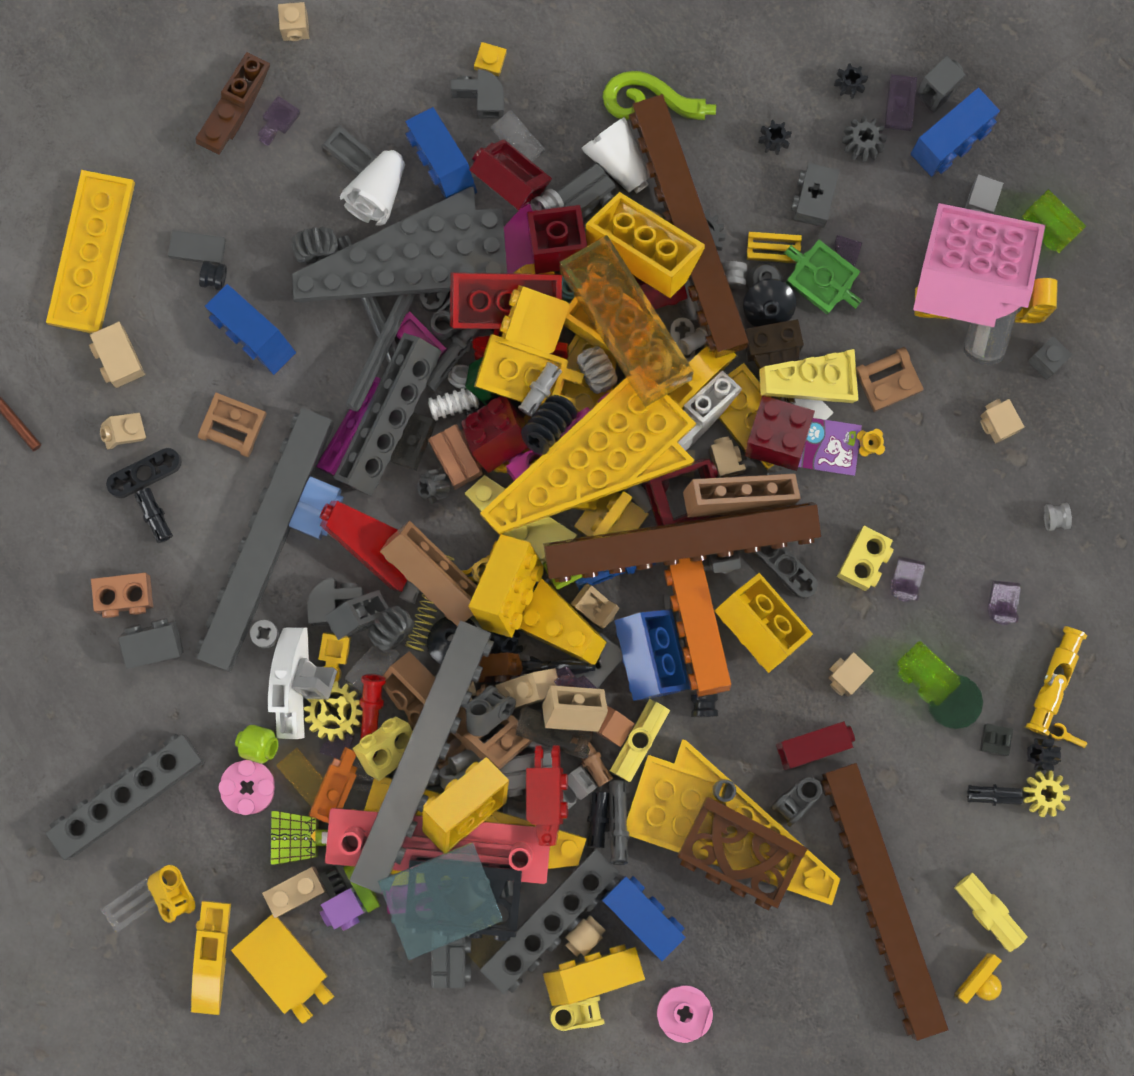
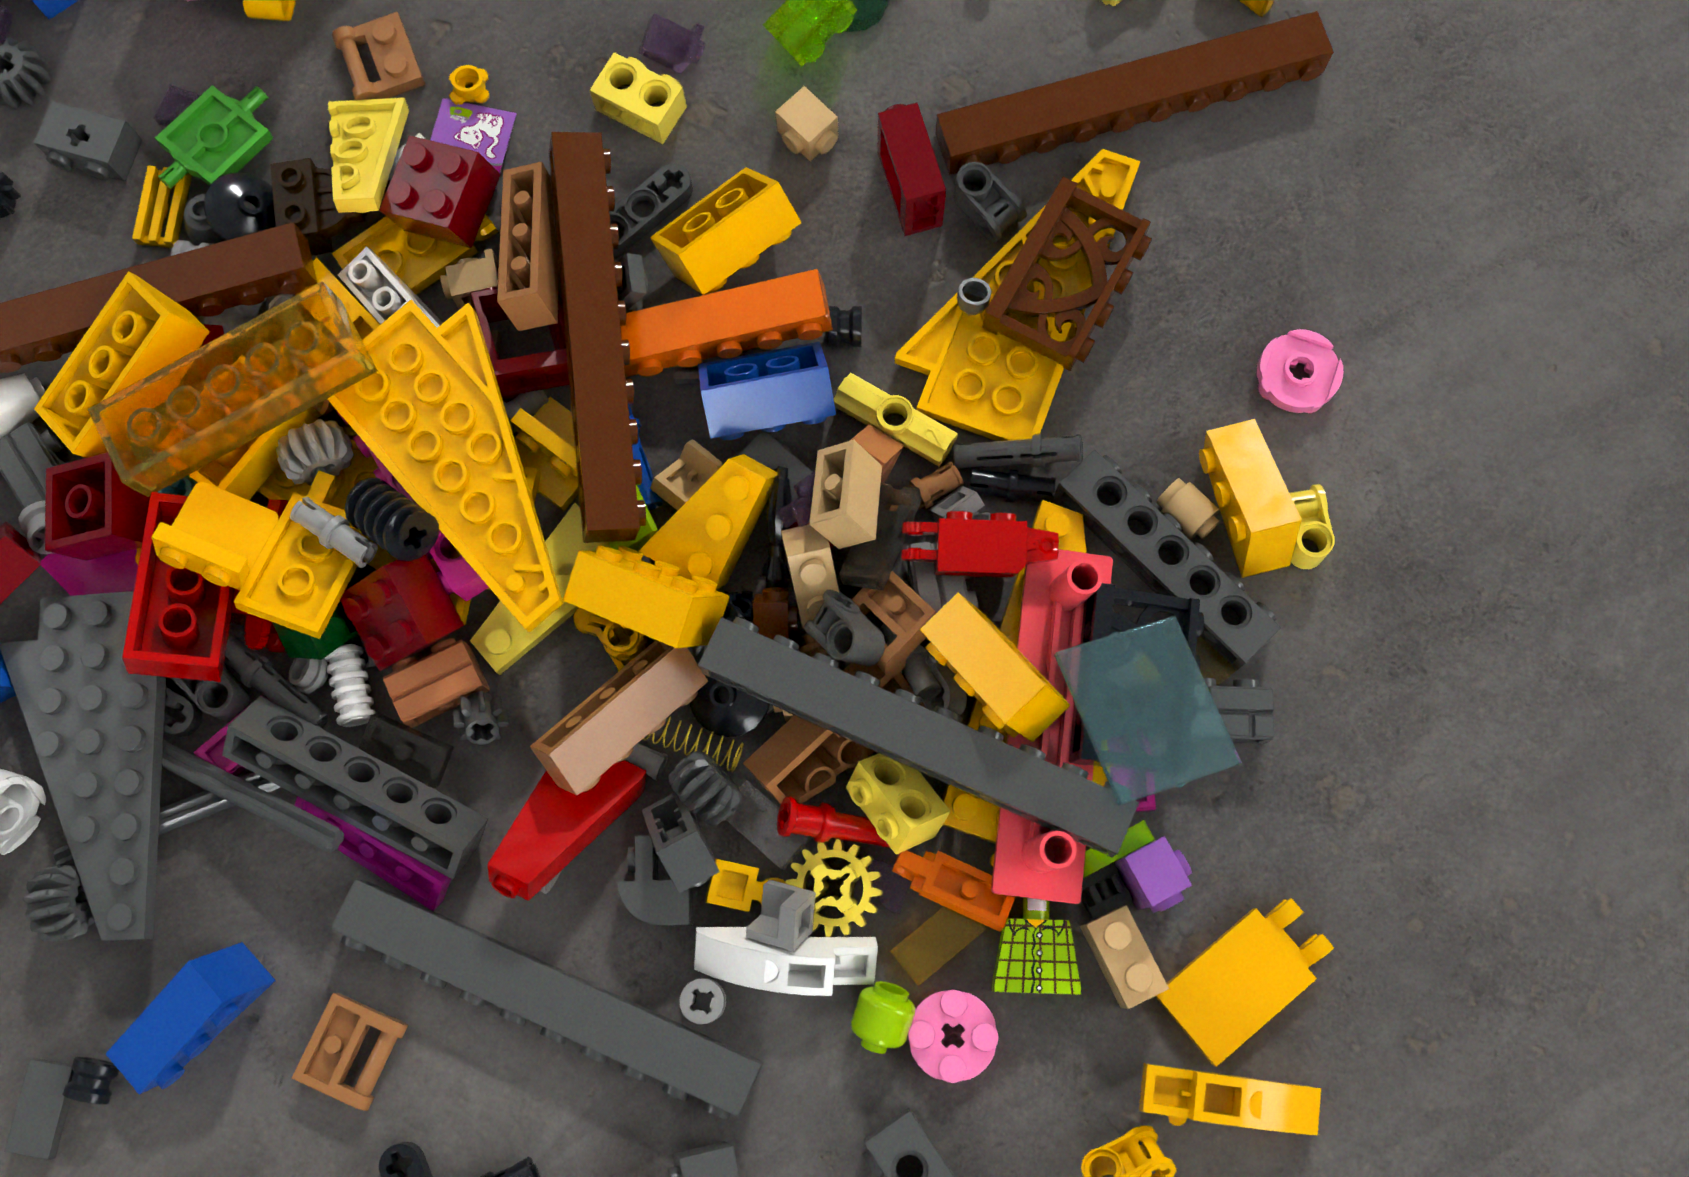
camera: 80 degrees left, 5 degrees down
(308, 510) = (500, 918): medium blue brick -> none
(644, 917) = (1164, 413): blue brick -> none

